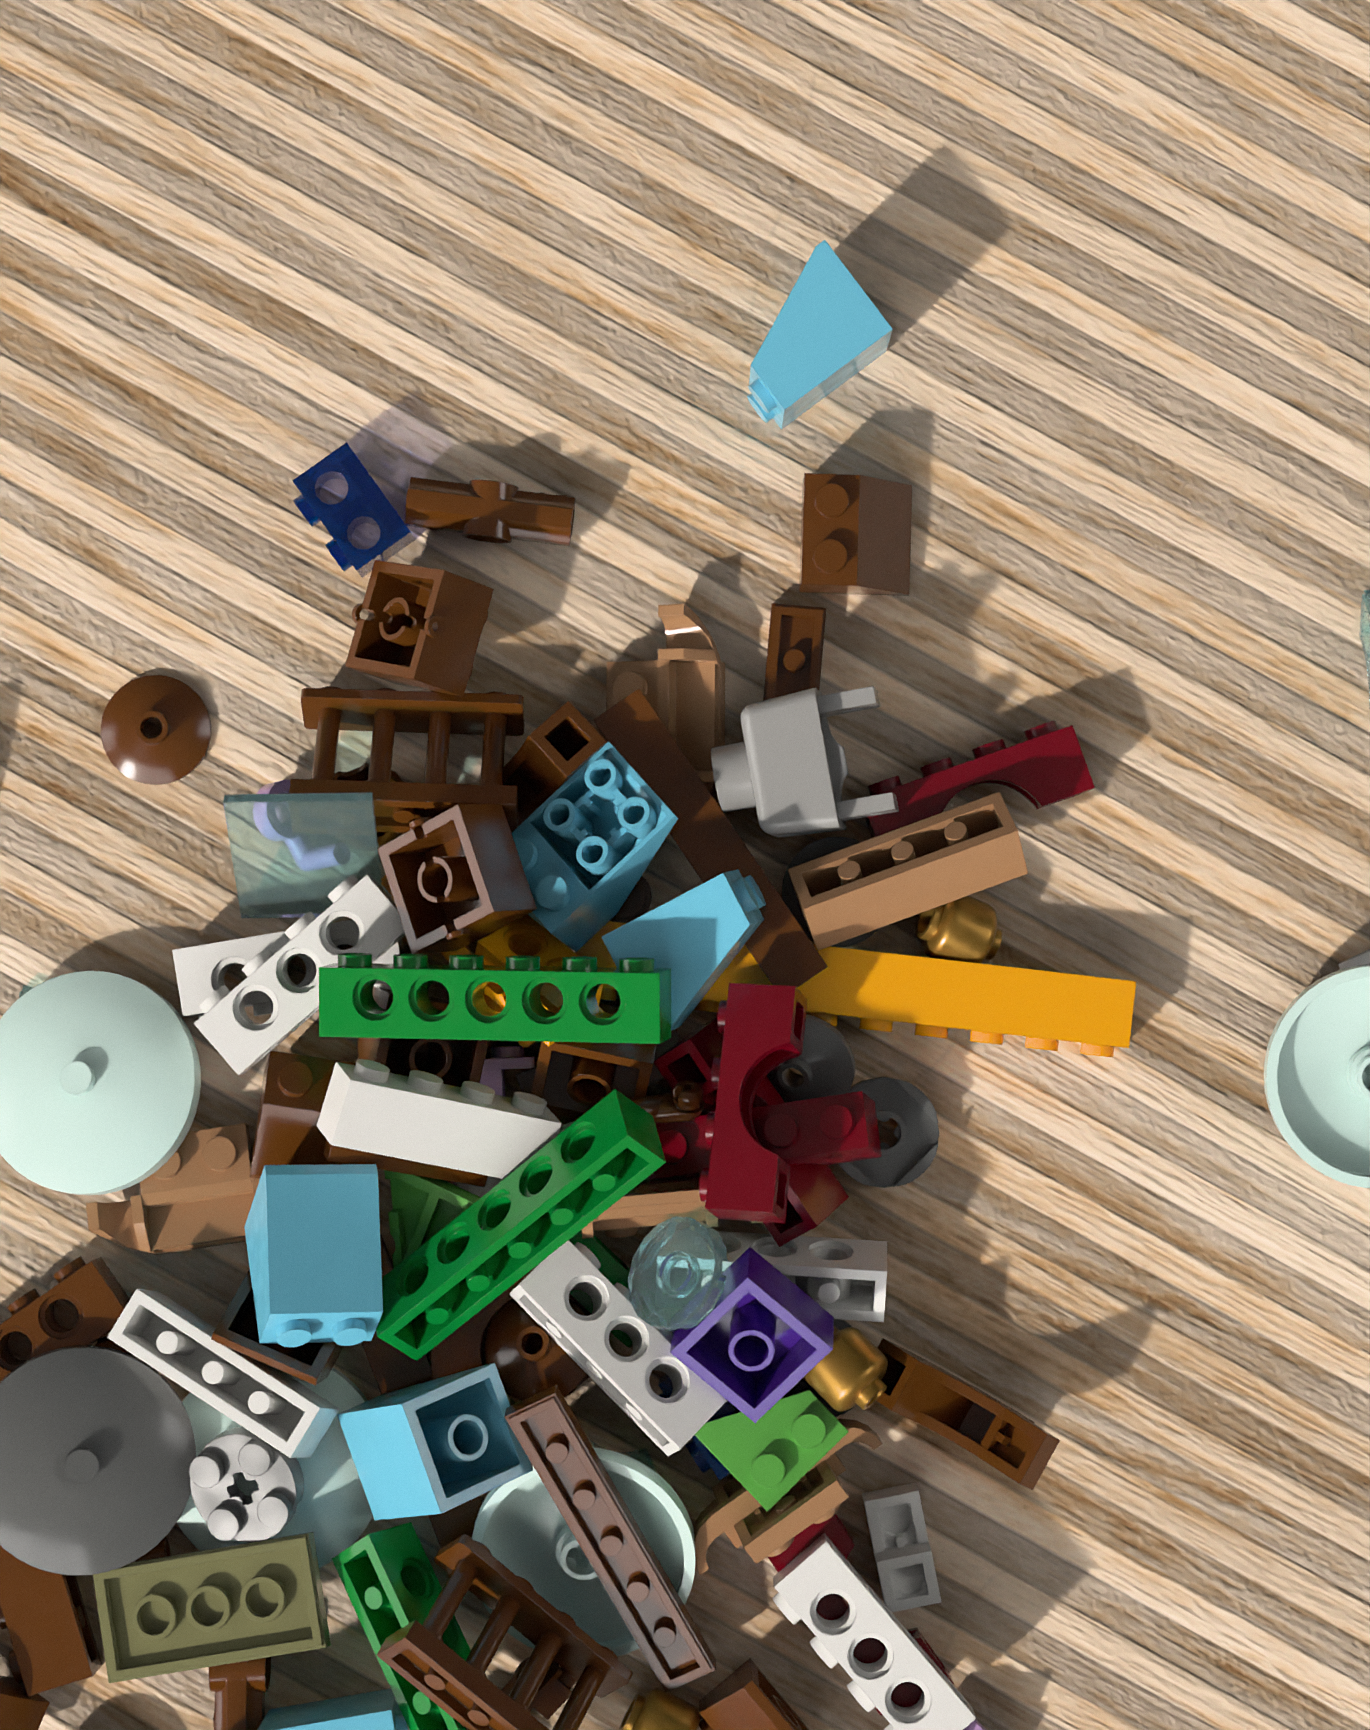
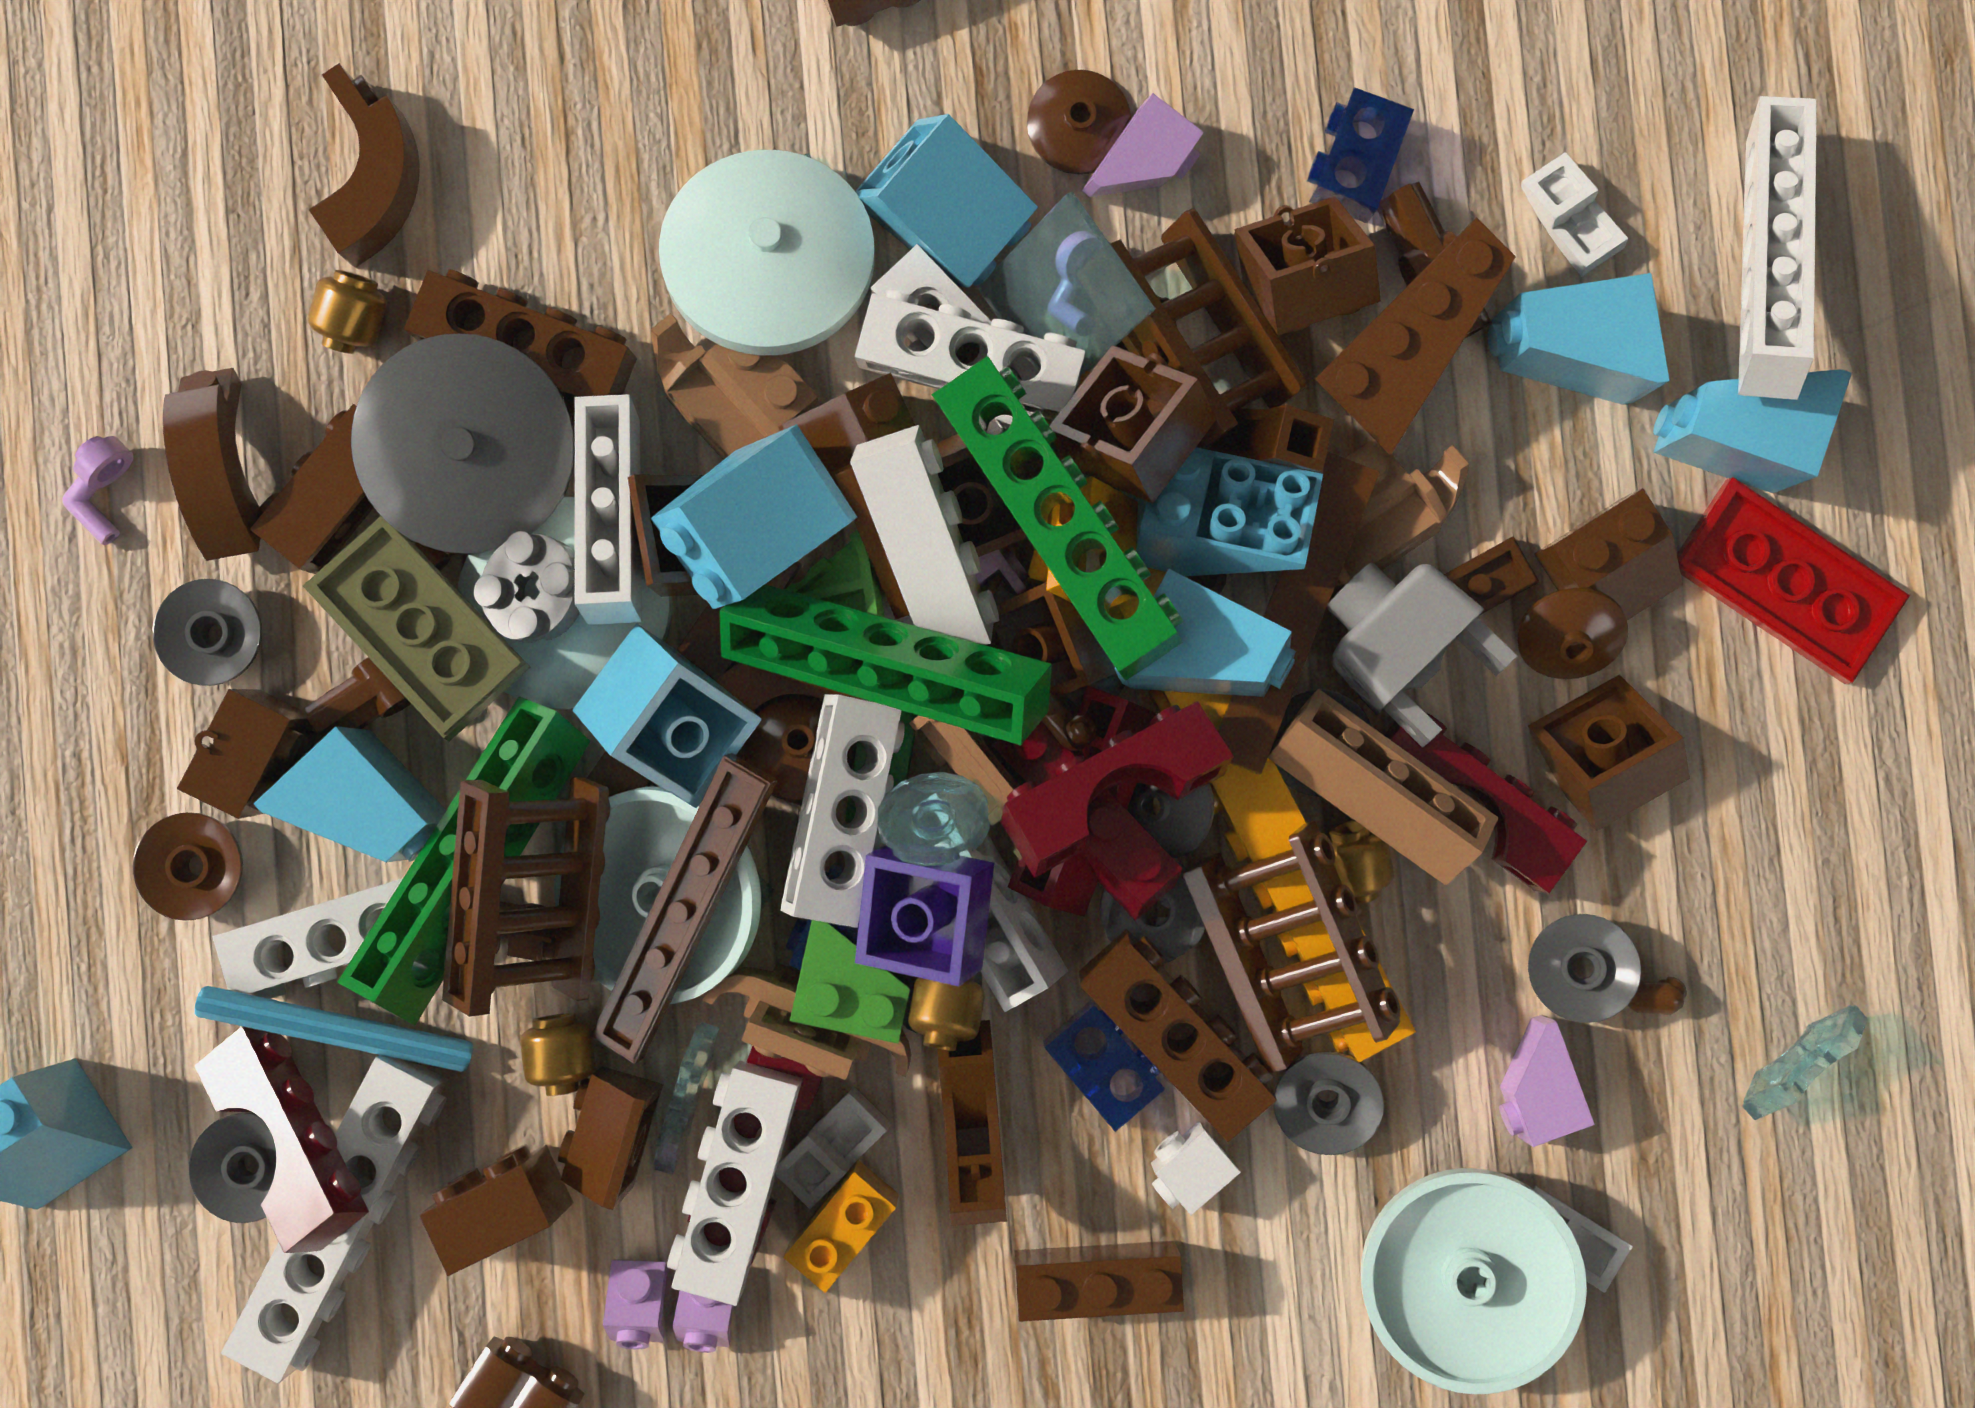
camera: 50 degrees right, 0 degrees up
(149, 897) = (947, 199): none -> medium azure slope
(225, 693) = (1147, 152): none -> lavender slope
(528, 359) = (1571, 216): none -> white slope
(548, 591) = (1409, 344): none -> reddish brown wedge
(642, 433) = (1585, 338): none -> medium azure slope
(676, 225) = (1778, 249): none -> white brick
(774, 1645) = (685, 1098): none -> clear light blue tile
(876, 603) = (1569, 618): none -> reddish brown dish
(970, 391) = (1790, 581): none -> red tile
(973, 1584) = (841, 1226): none -> light orange brick
(982, 1086) = (1259, 985): none -> reddish brown fence
(987, 1279) = (1094, 1071): none -> clear blue brick
(1011, 648) = (1611, 751): none -> reddish brown slope
(1088, 1184) = (1225, 1101): none -> reddish brown brick
(1125, 1250) = (1191, 1168): none -> white brick
(1160, 1115) = (1332, 1125): none -> dark grey dish
(1166, 1396) = (1099, 1281): none -> reddish brown brick
(1176, 827) = (1614, 963): none -> dark grey dish
(1241, 760) = (1659, 997): none -> reddish brown arm
(1258, 903) = (1543, 1088): none -> lavender slope

